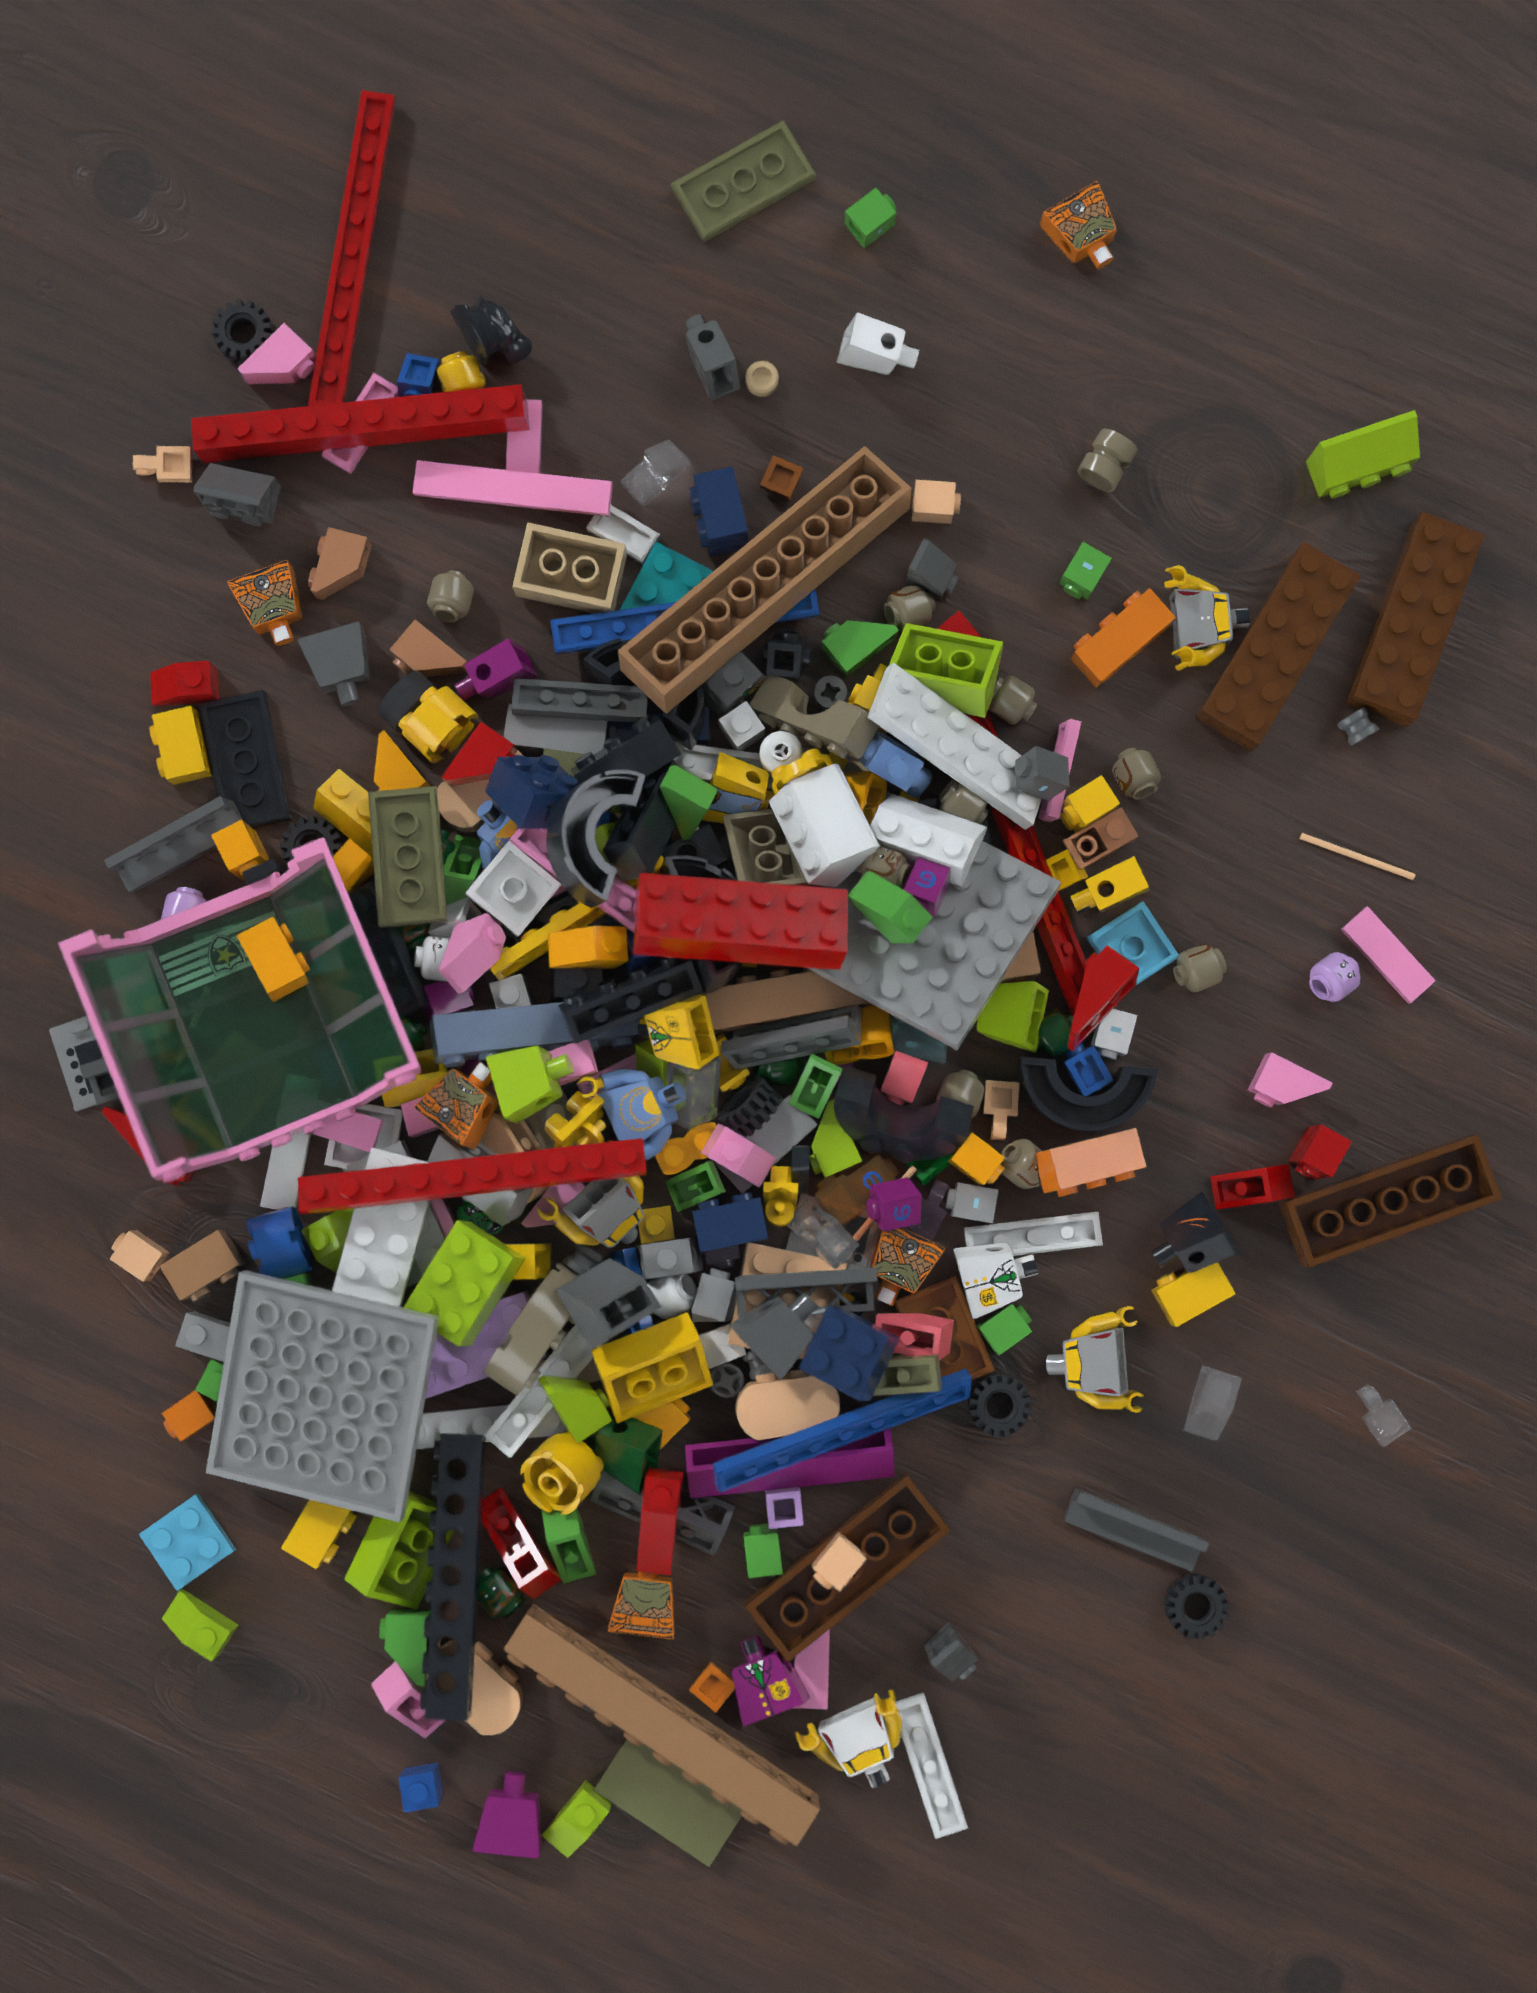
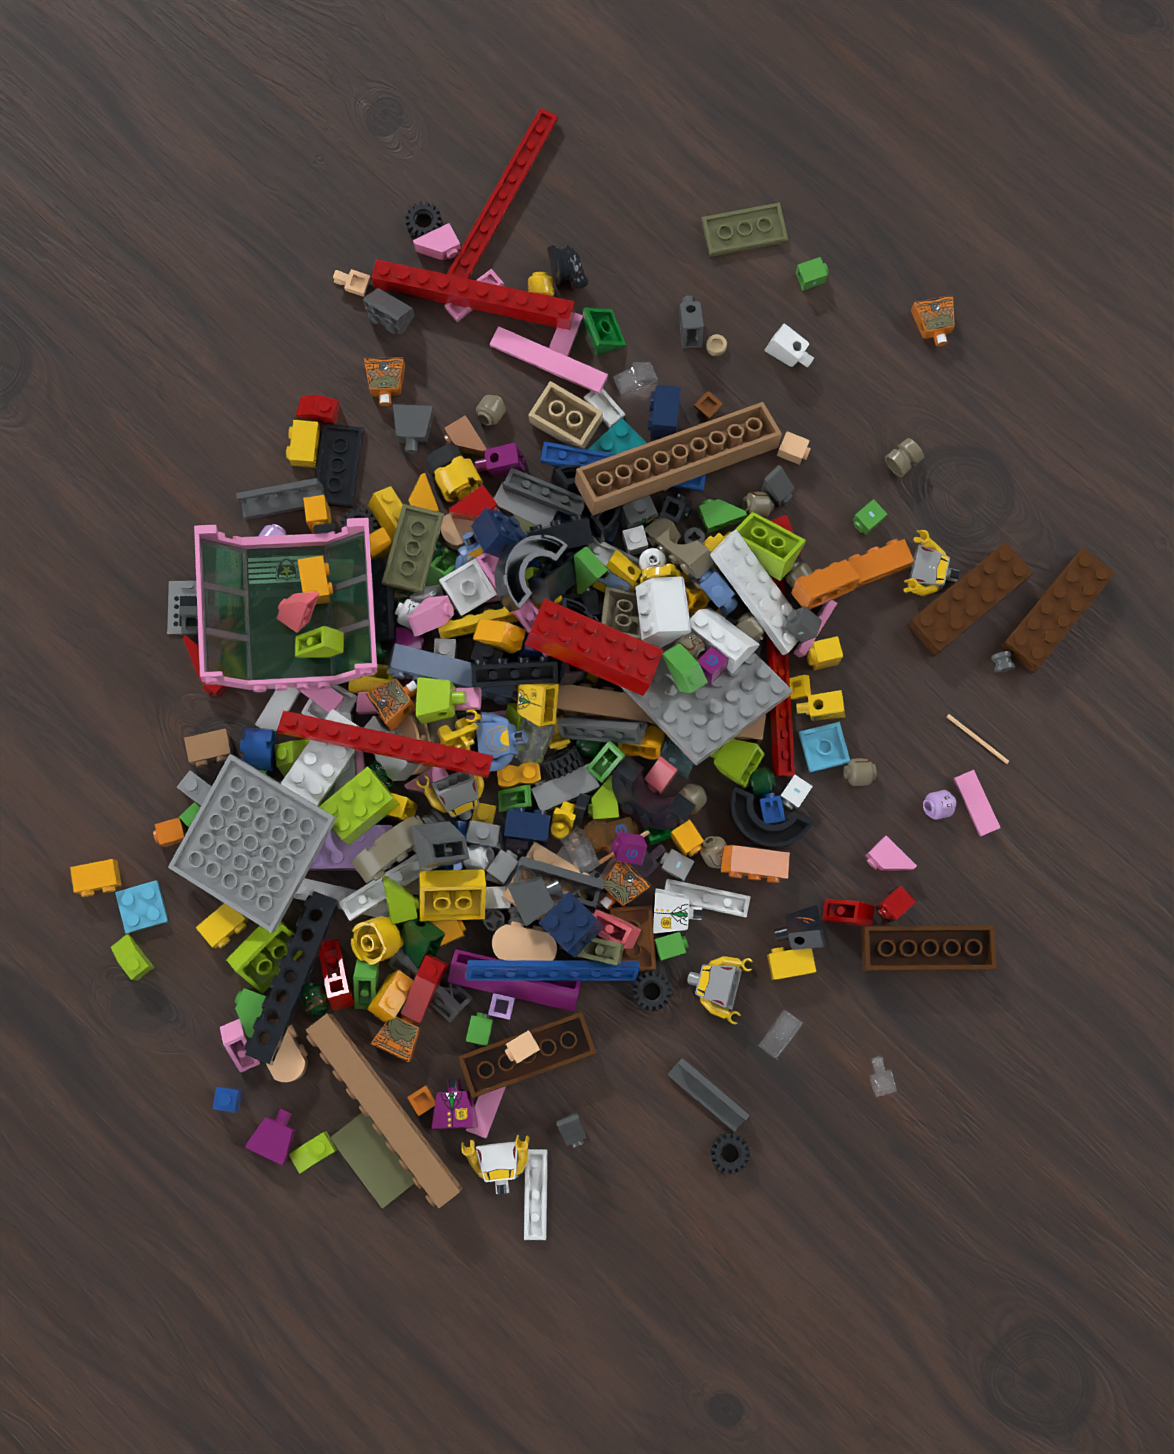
camera: 20 degrees right, 5 degrees down
(101, 1521) = (95, 877): none -> light orange brick
(138, 1255) = (173, 728): light nougat brick -> none
(264, 1014) = (297, 609): none -> coral slope
(317, 1054) = (319, 643): none -> lime slope
(340, 562) = (434, 369): nougat slope -> none
(417, 375) = (515, 277): blue bracket -> none
(580, 413) = (603, 330): none -> green slope
(613, 1549) = (391, 996): none -> light orange brick
(738, 1155) = (547, 787): bright pink slope -> none
(1000, 1102) = (713, 812): light nougat plate -> none
(1054, 700) = (825, 584): none -> orange brick
(1101, 839) = (826, 676): nougat slope -> none
(1104, 985) = (798, 761): red slope -> none
(1136, 773) = (860, 645): dark tan head -> none
(1365, 455) = (1059, 504): lime slope -> none

